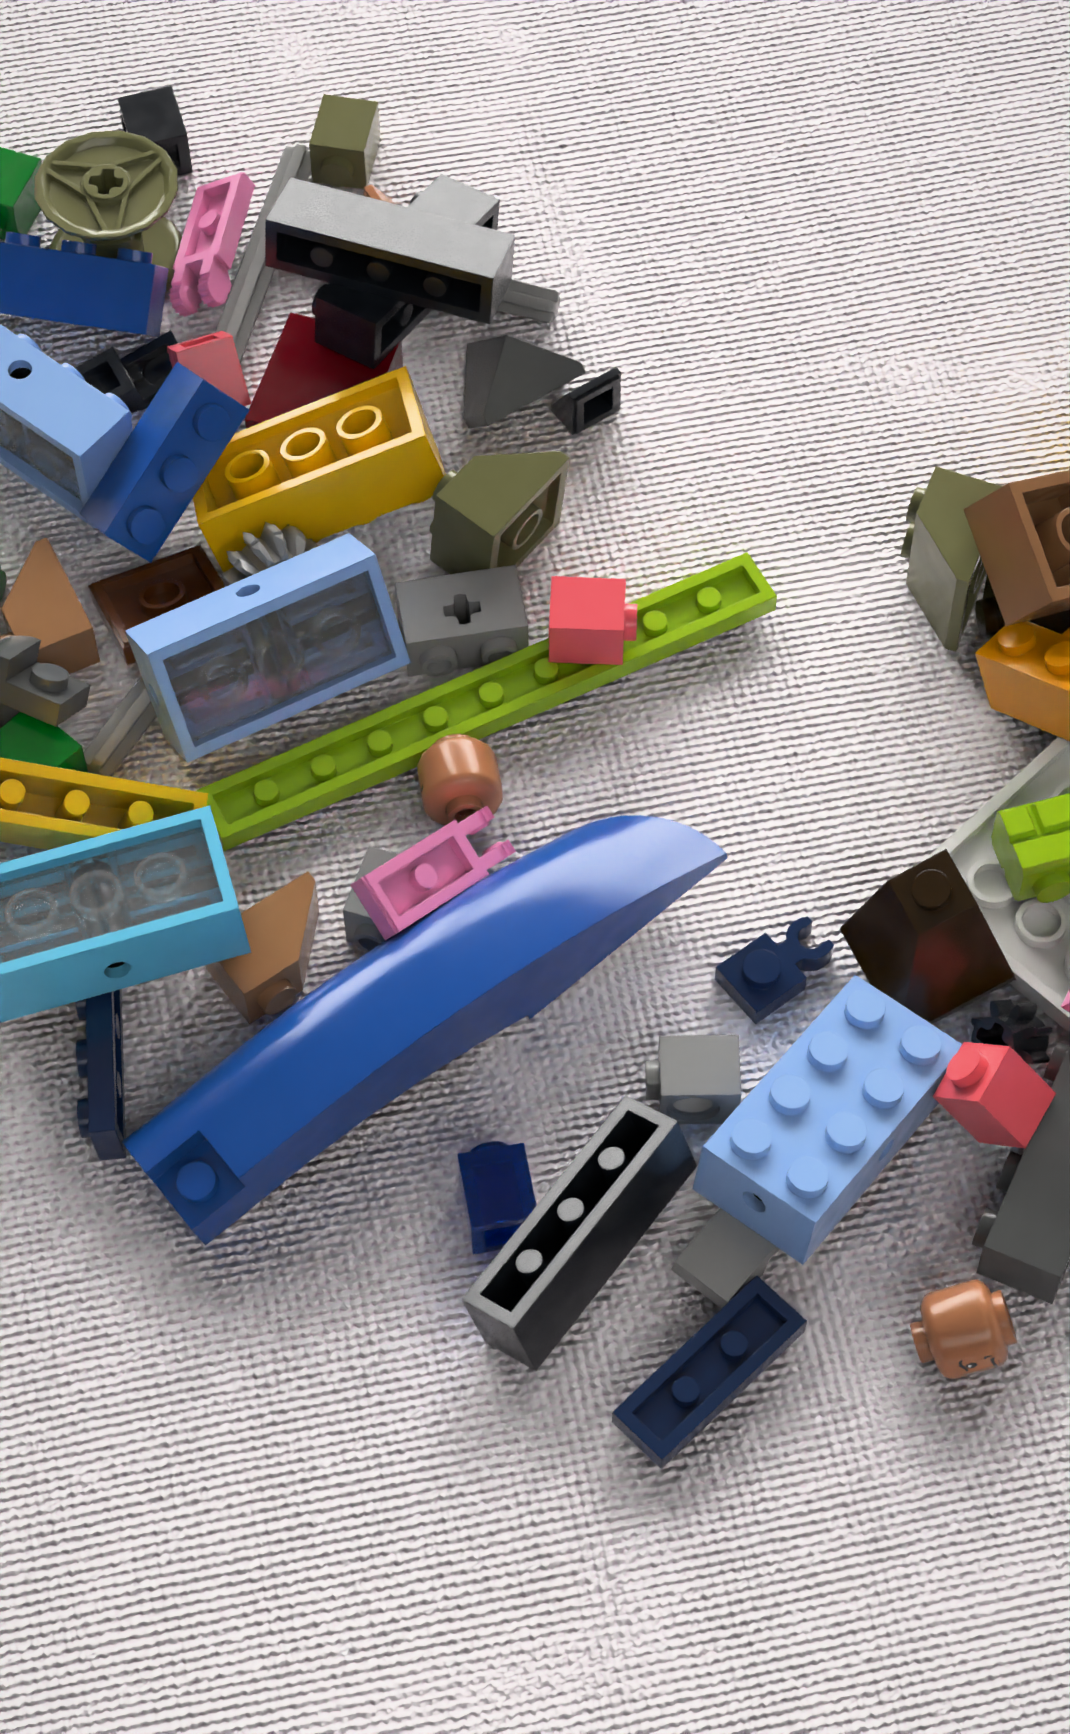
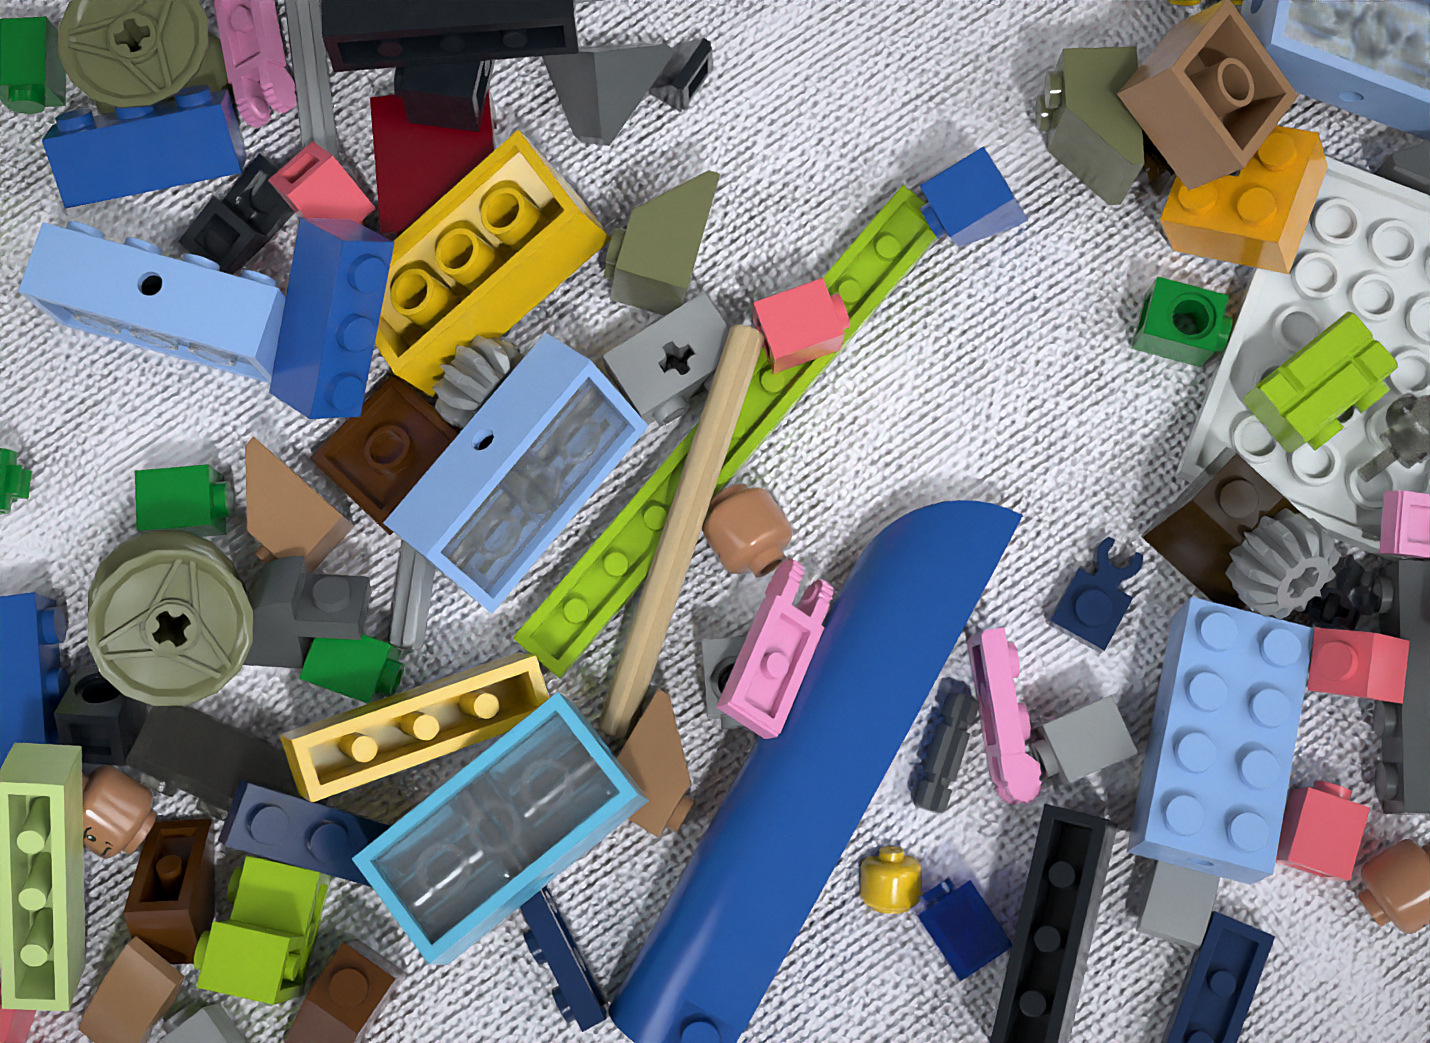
camera: 20 degrees left, 20 degrees up
(399, 748) = (681, 531): none -> tan axle
(448, 1136) = (890, 881): none -> yellow piece
(559, 1046) = (946, 752): none -> dark grey axle
(629, 1032) = (1002, 718): none -> bright pink hinge
(804, 578) = (971, 201): none -> blue slope
(896, 1248) = (1322, 831): none -> coral brick
(954, 970) = (1283, 563): none -> light grey gear
(962, 736) = (1160, 337): none -> green brick

